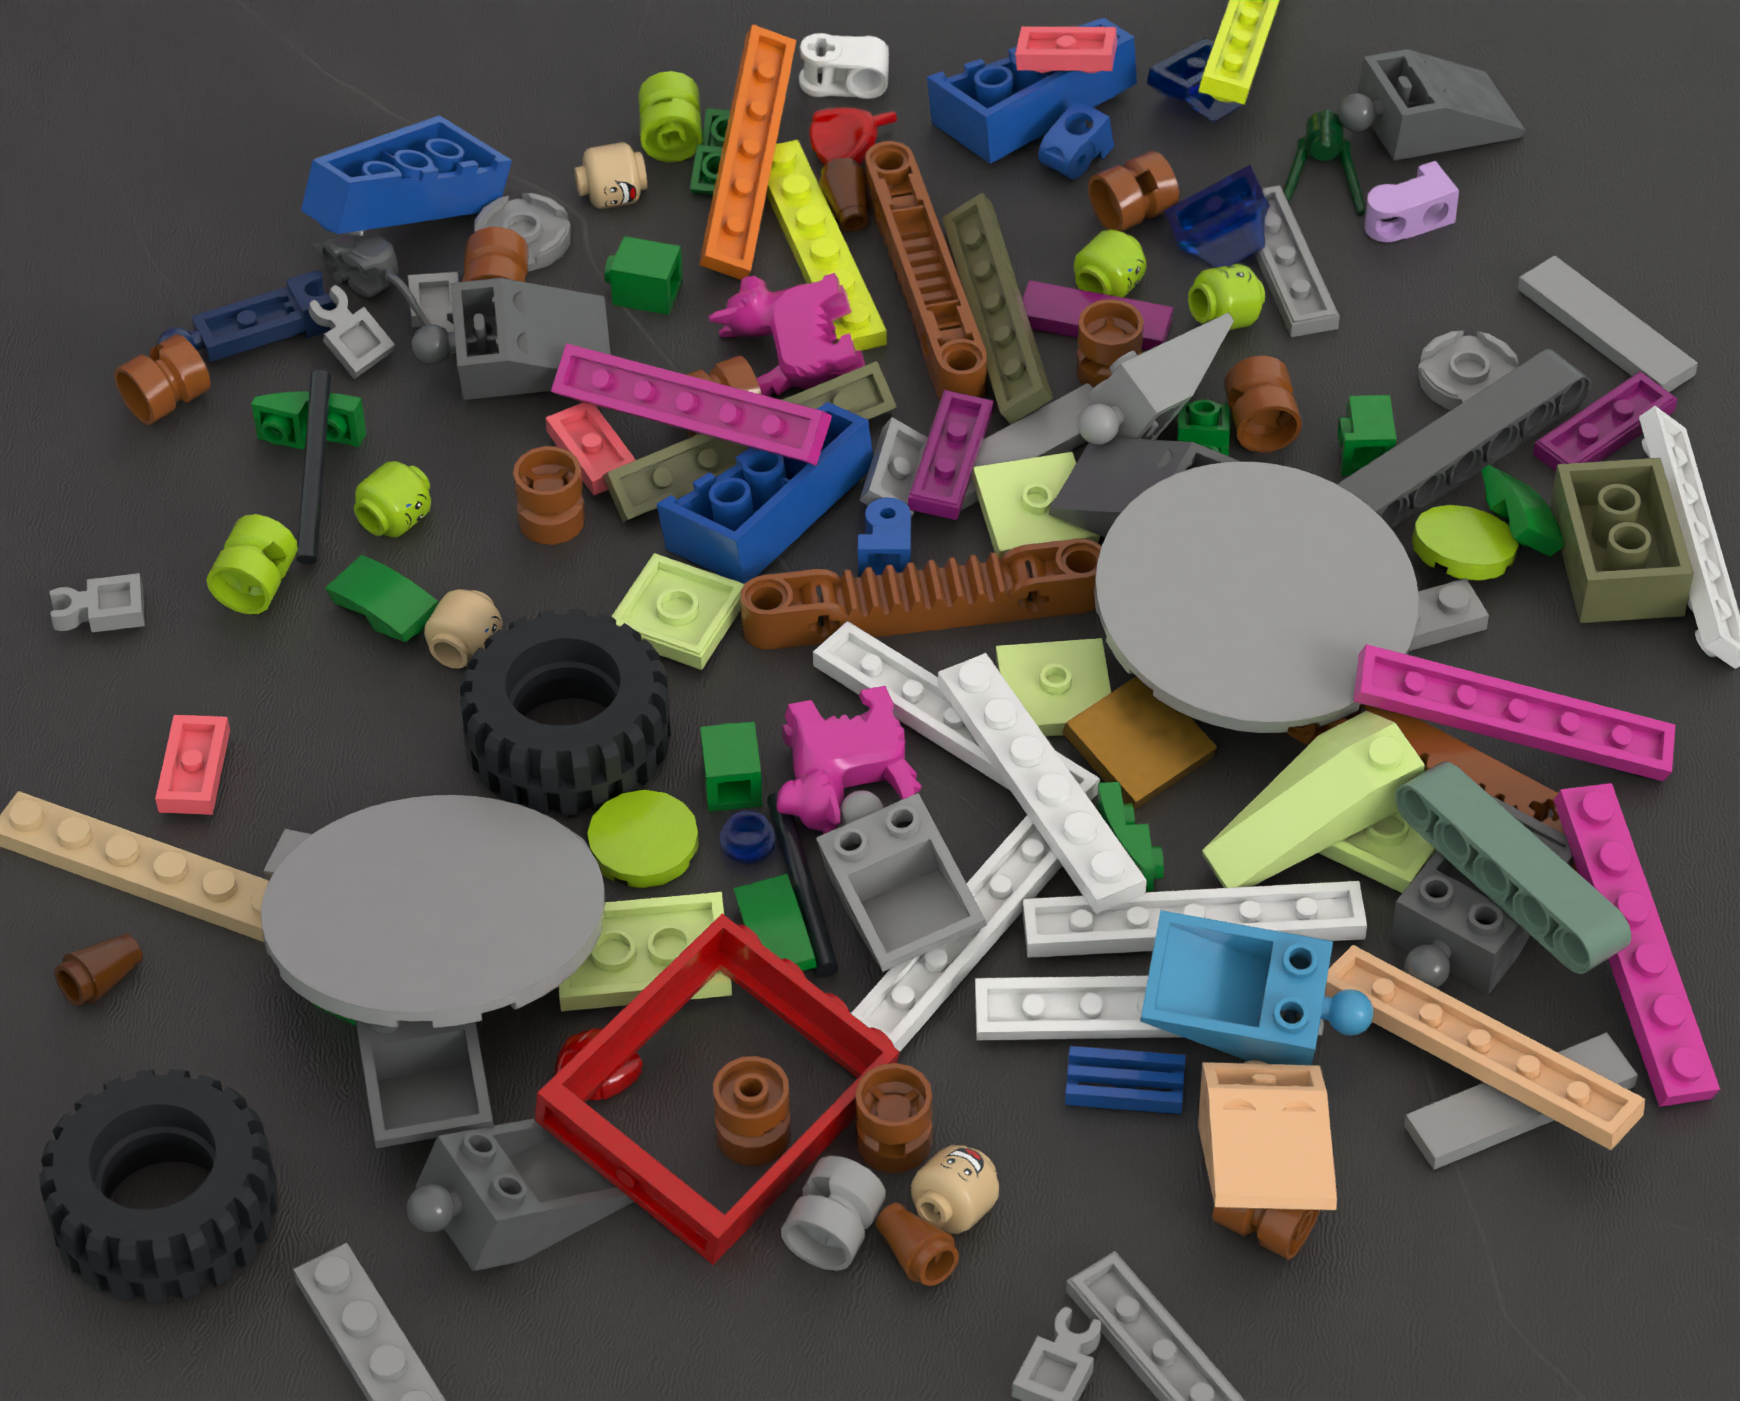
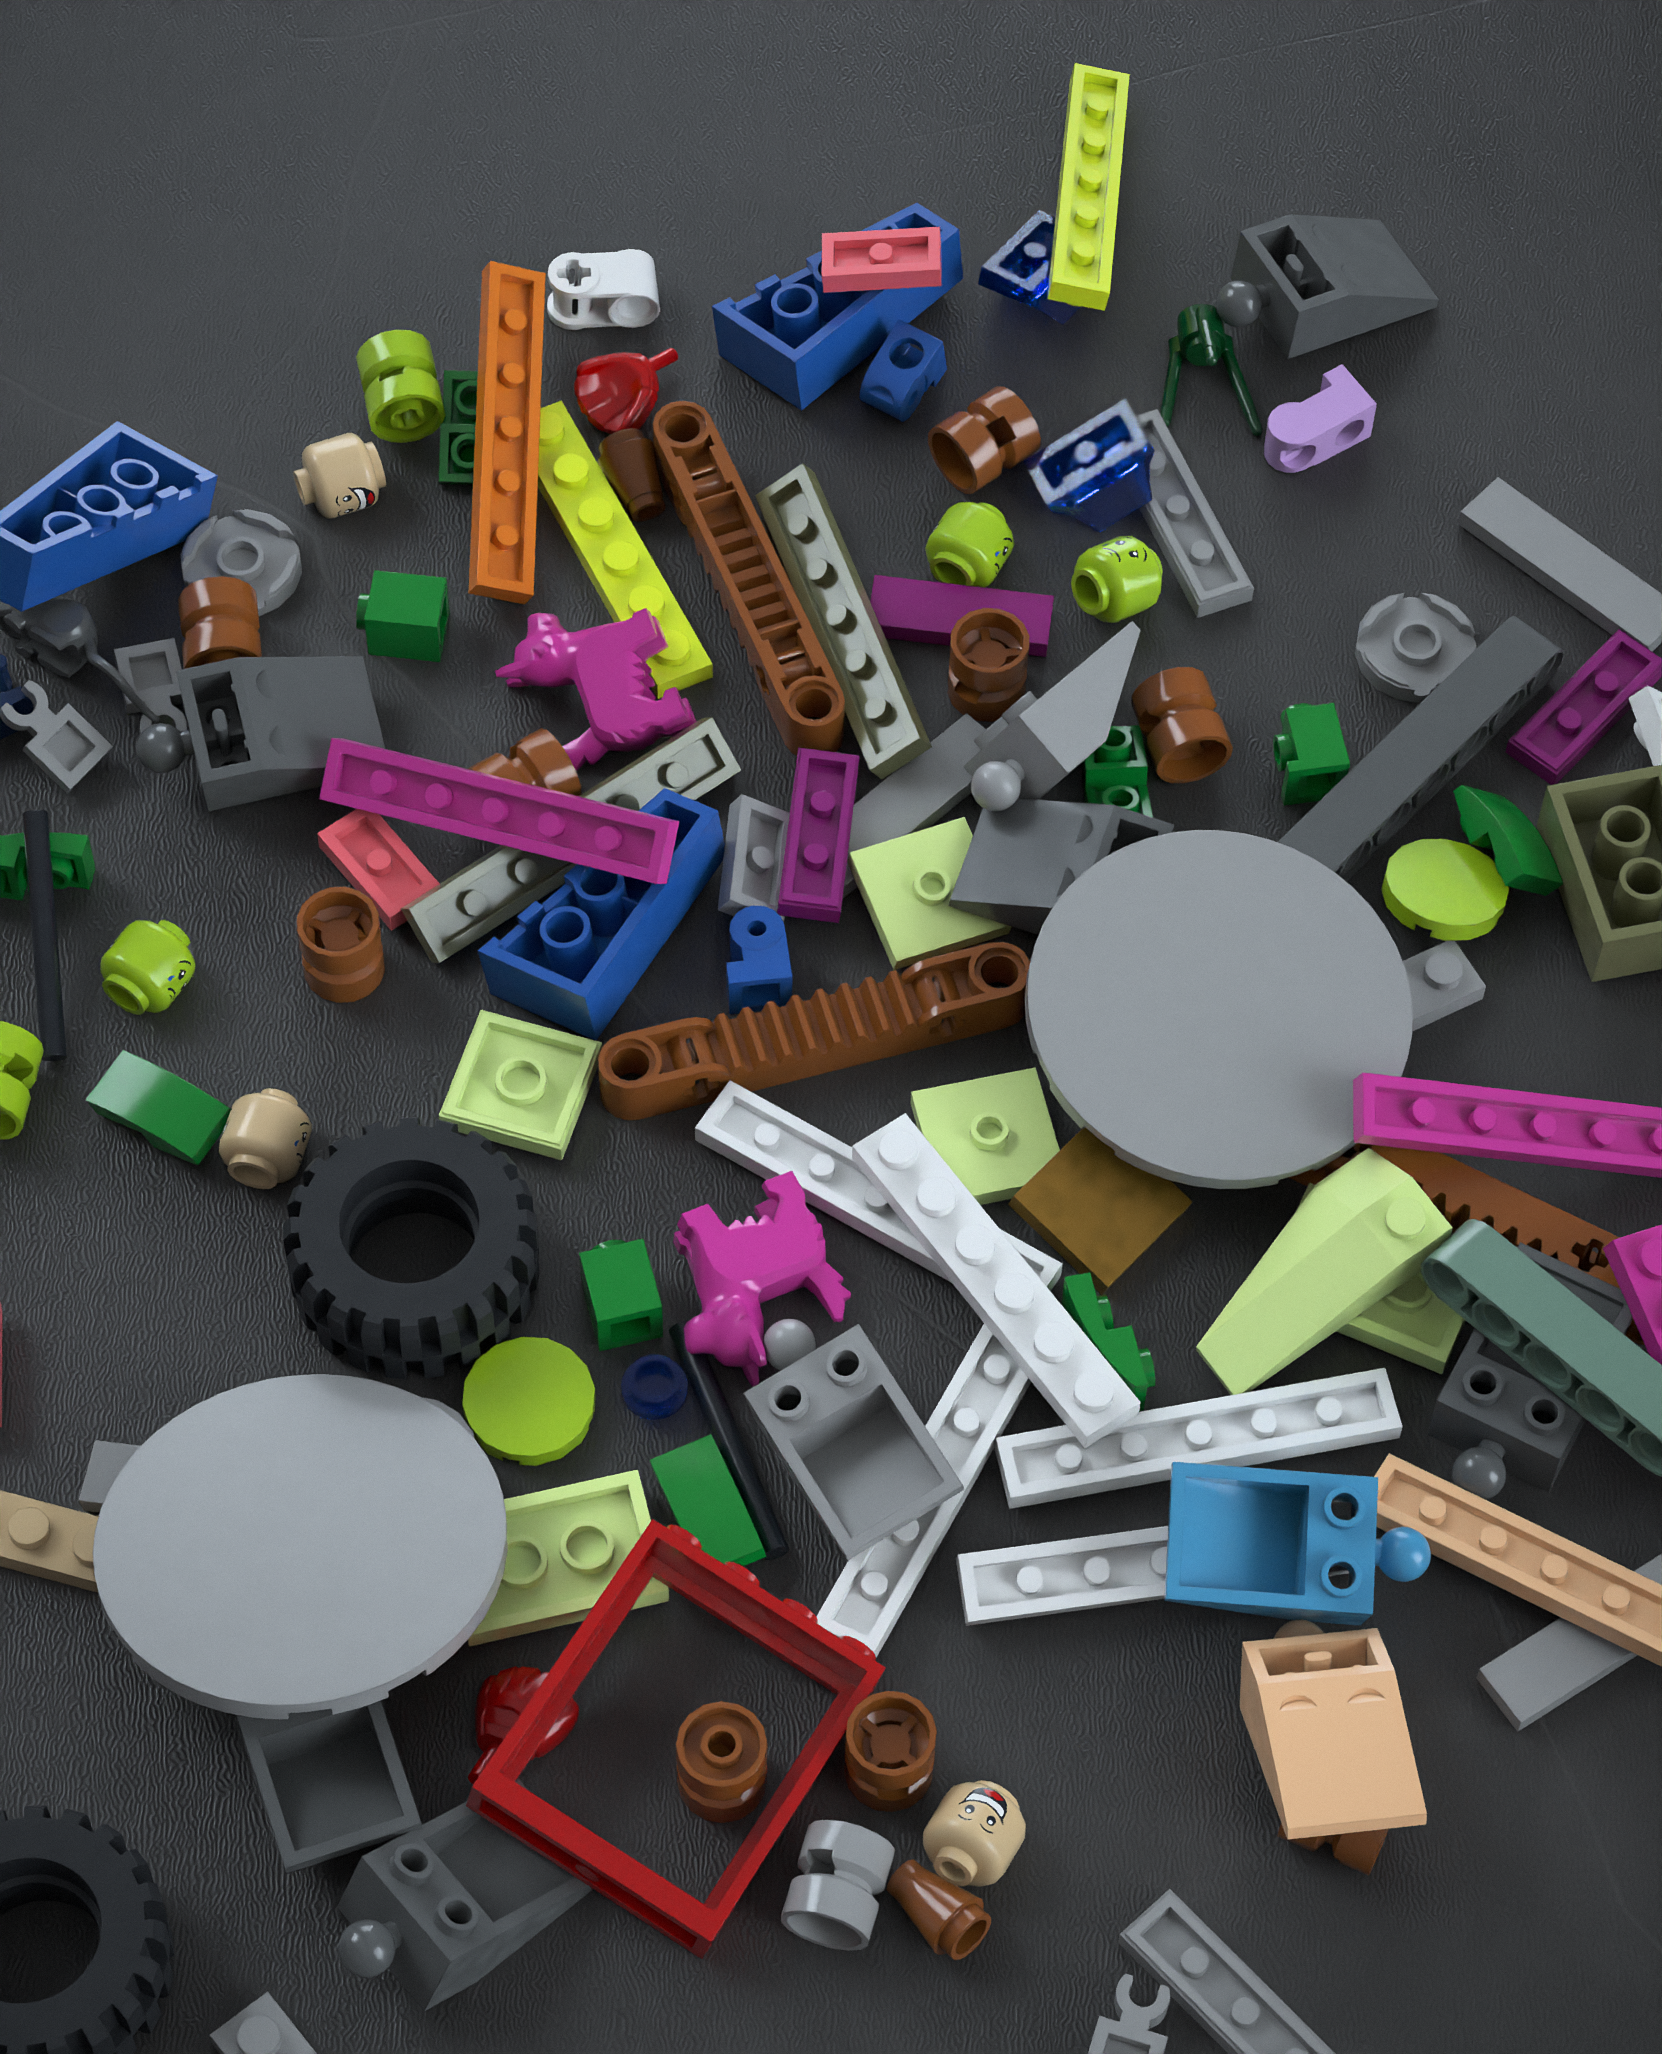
camera: 10 degrees left, 10 degrees up
(1125, 1072) = (1147, 1634): blue tile -> none

